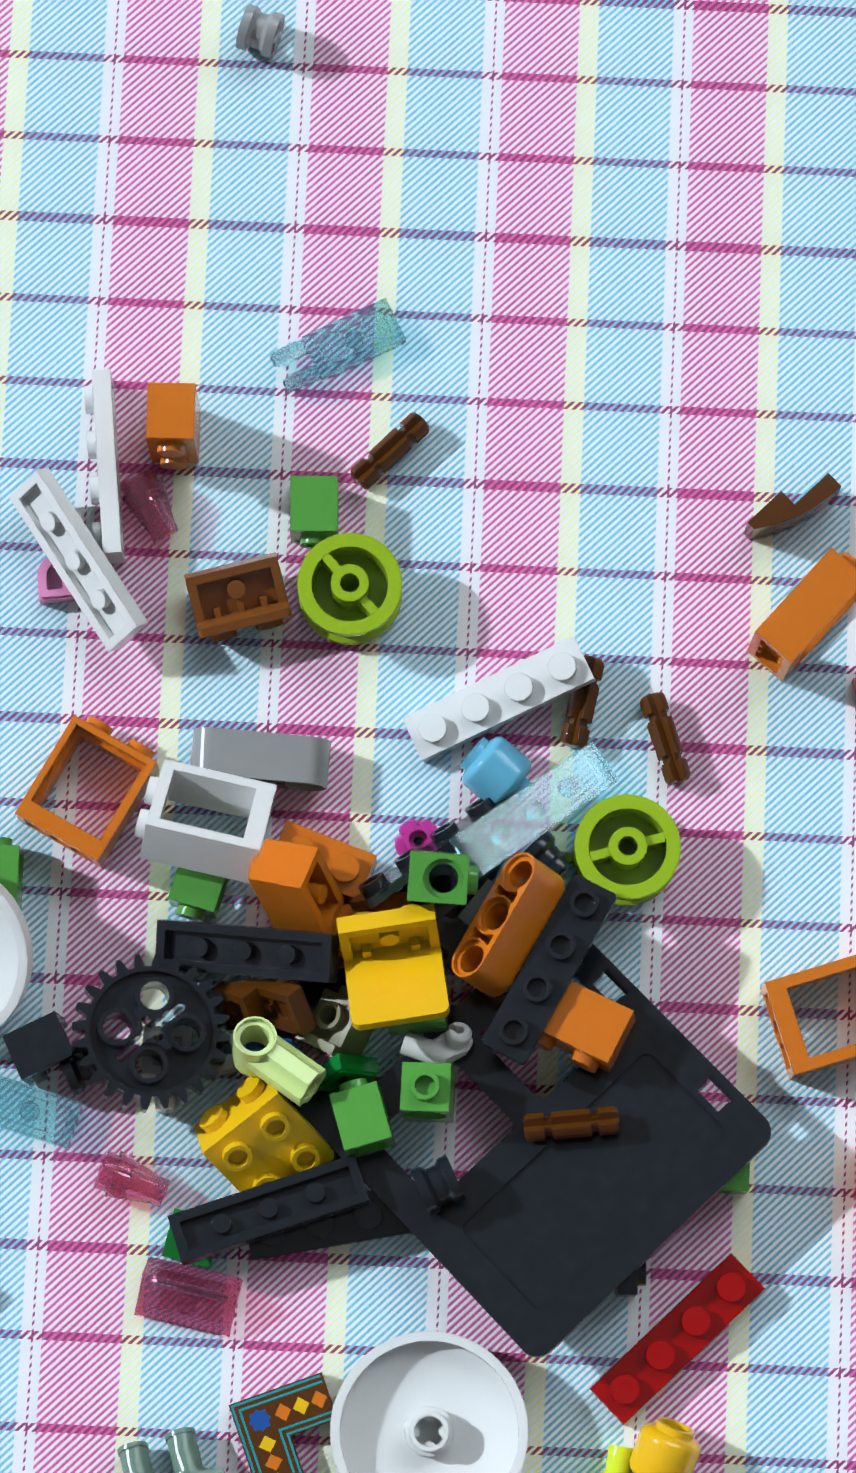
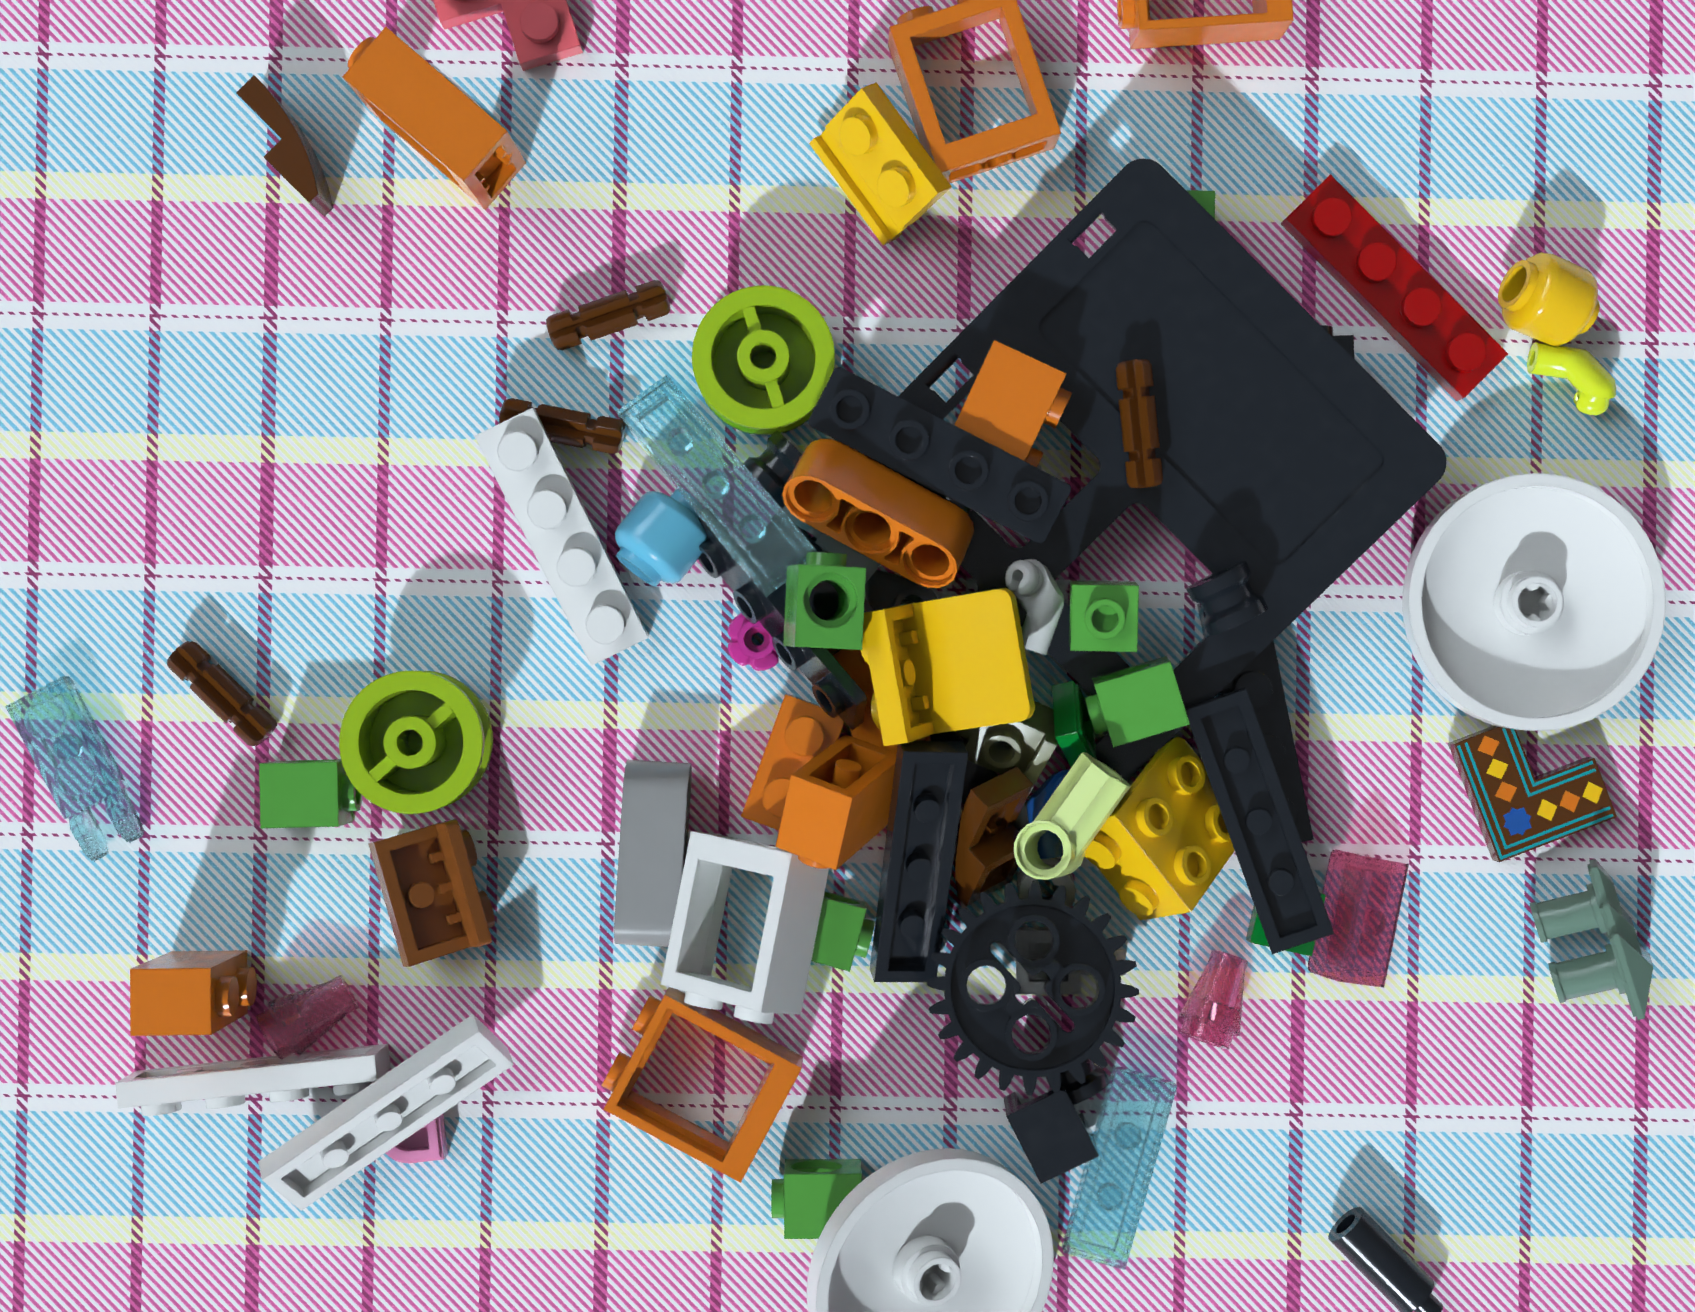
camera: 90 degrees left, 10 degrees up
(773, 941) = (880, 163): none -> yellow plate

